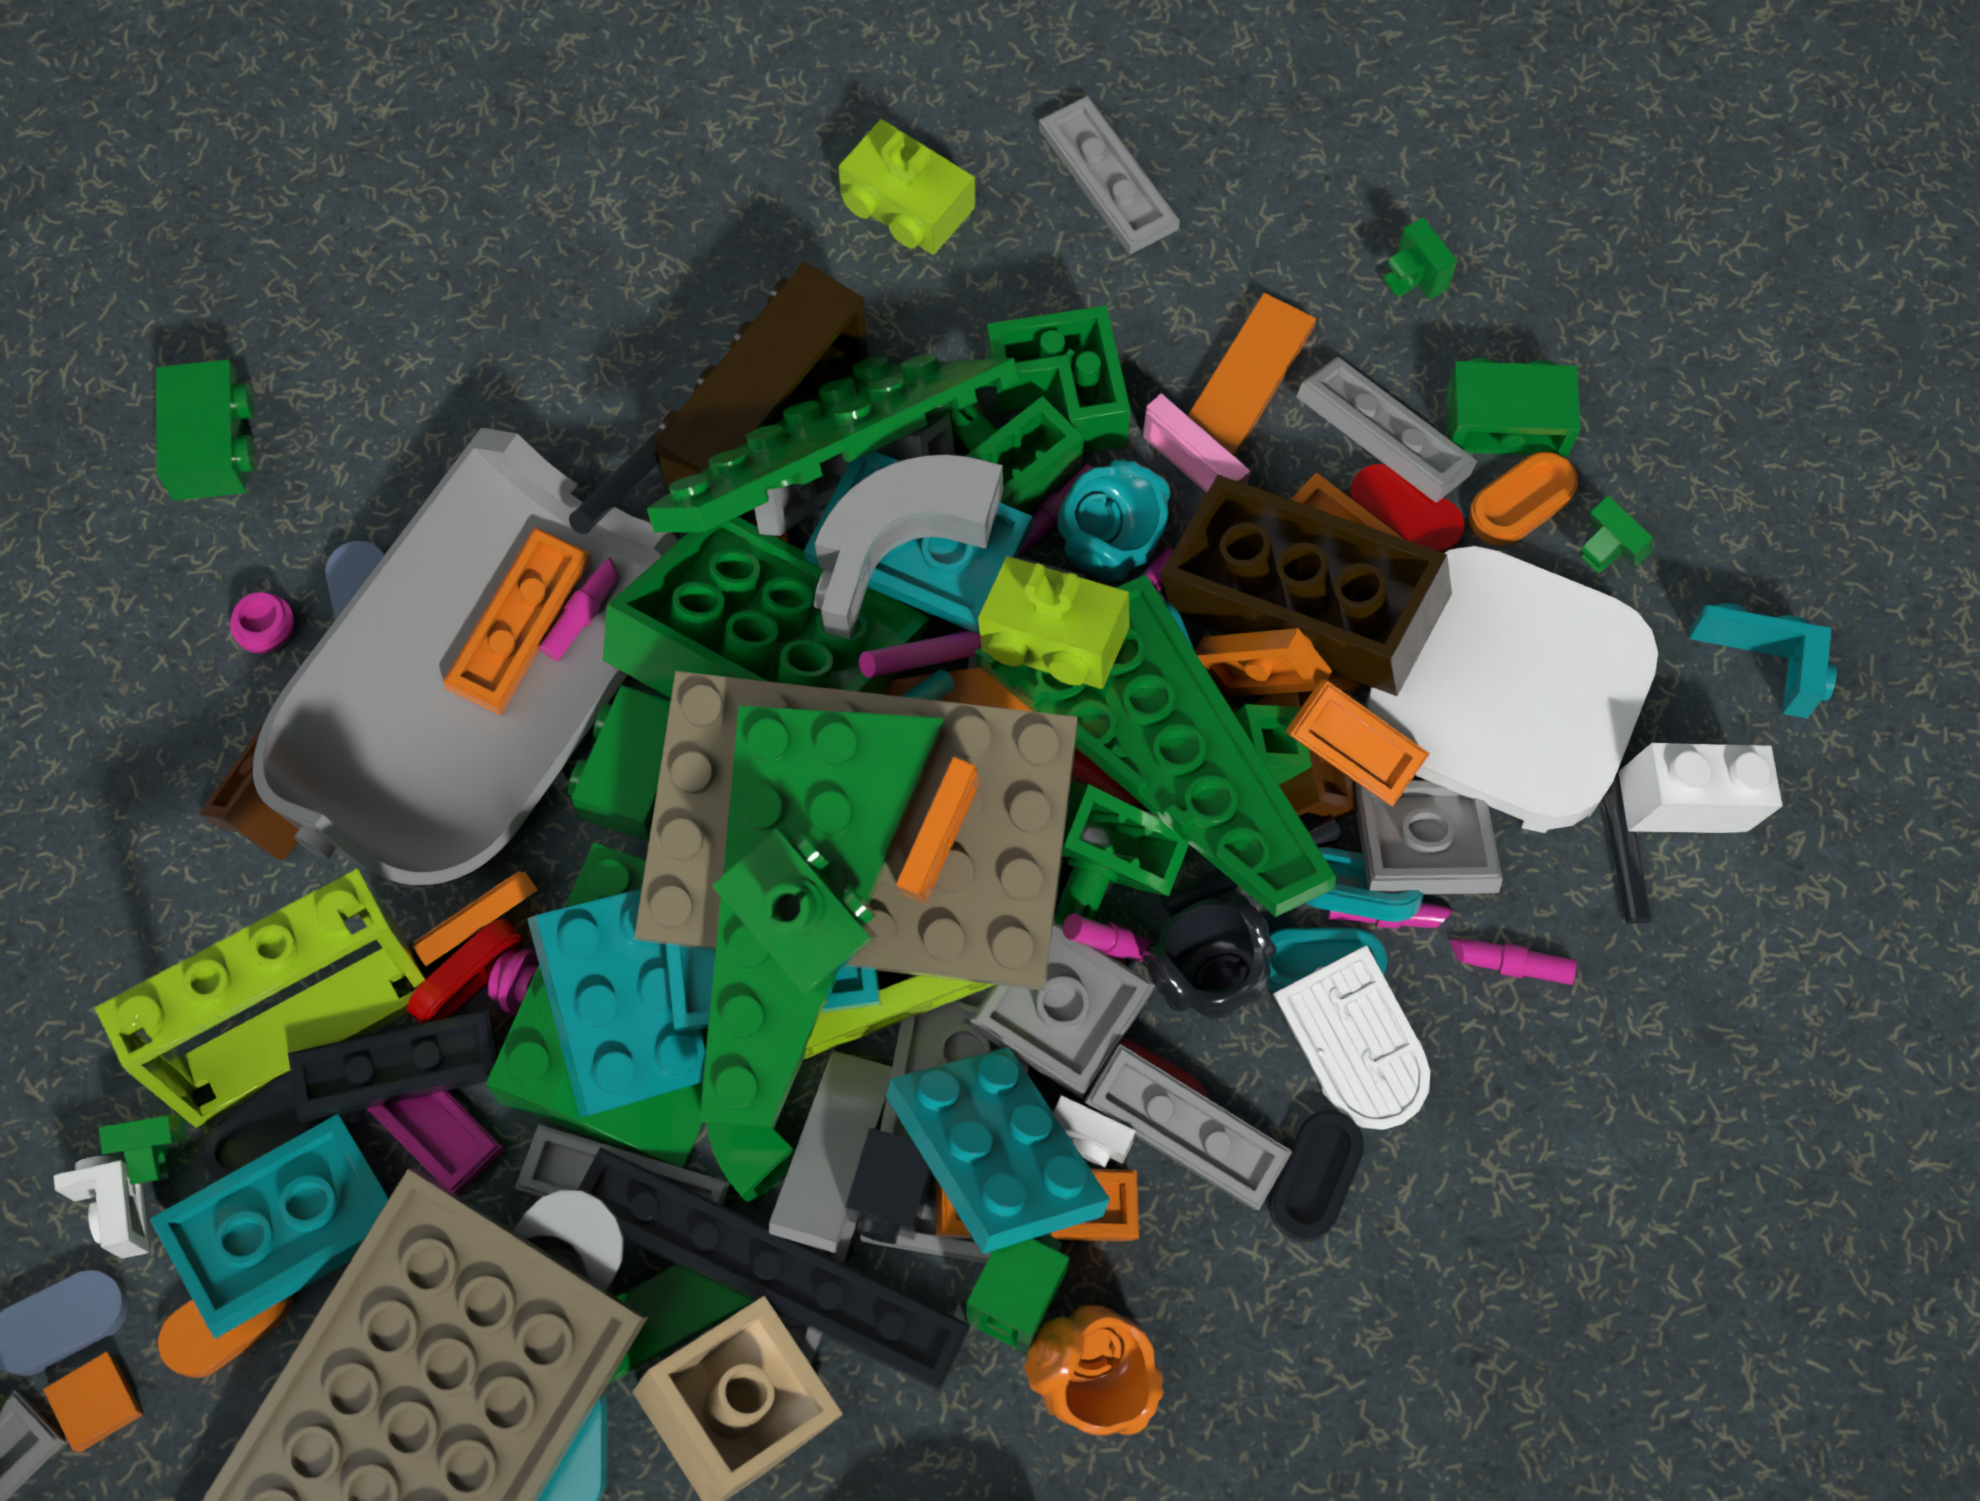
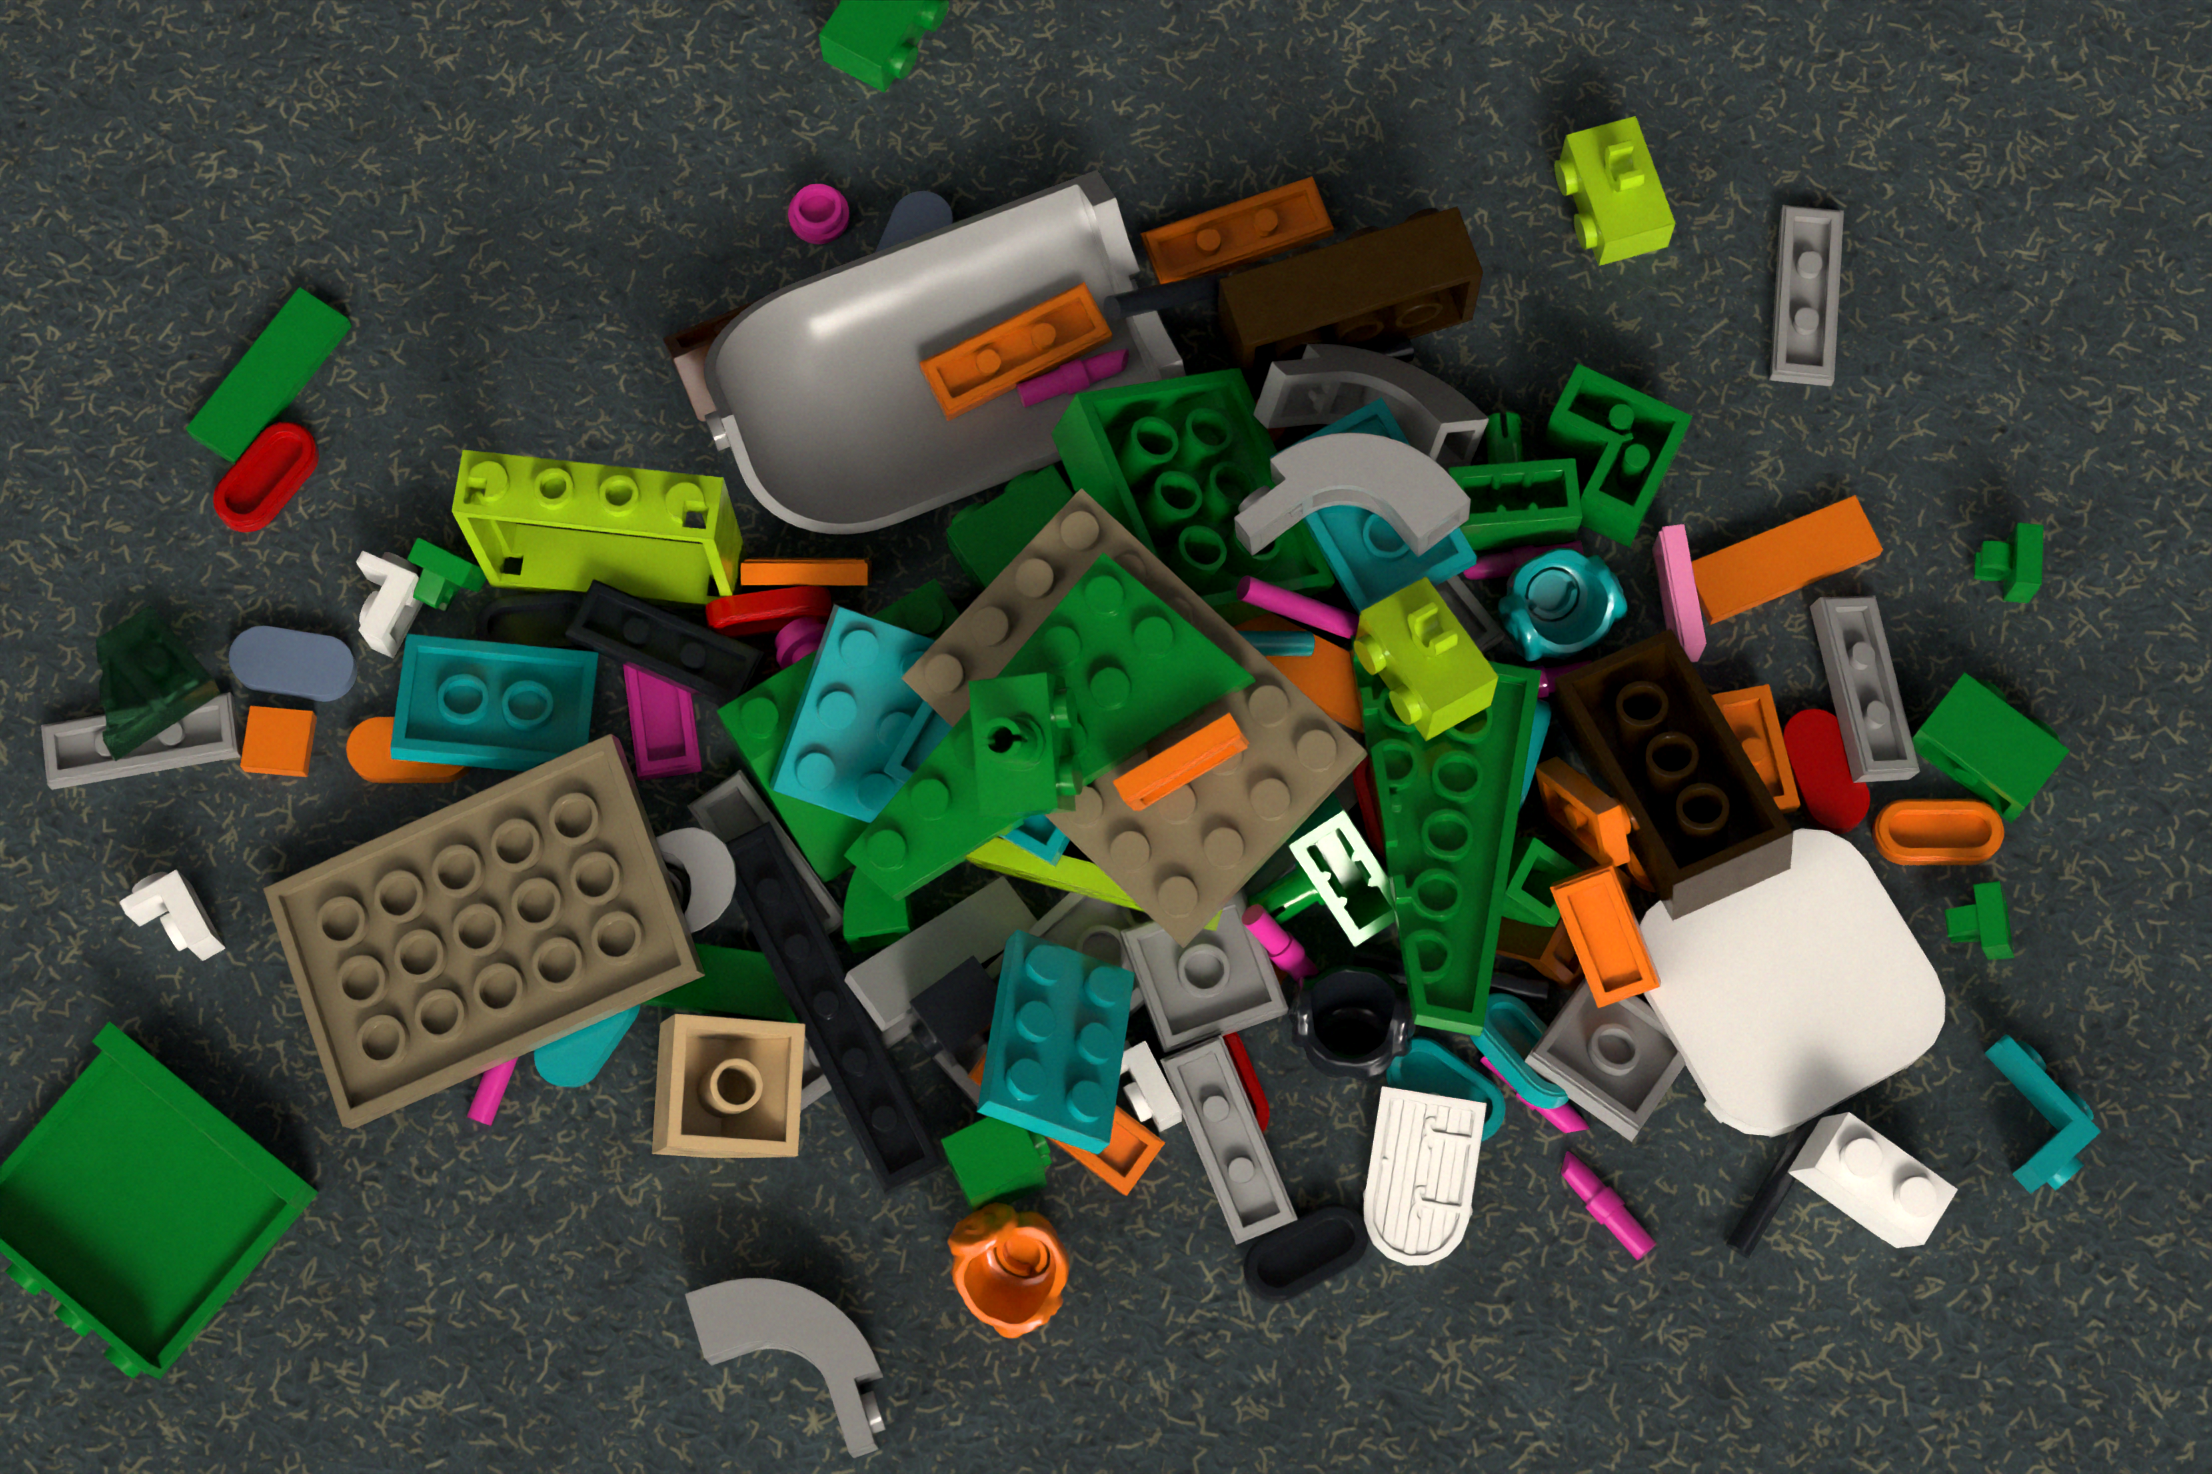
camera: 40 degrees right, 5 degrees up
(630, 411) = (1238, 232): none -> orange tile
(847, 417) = (1382, 369): green wing -> none

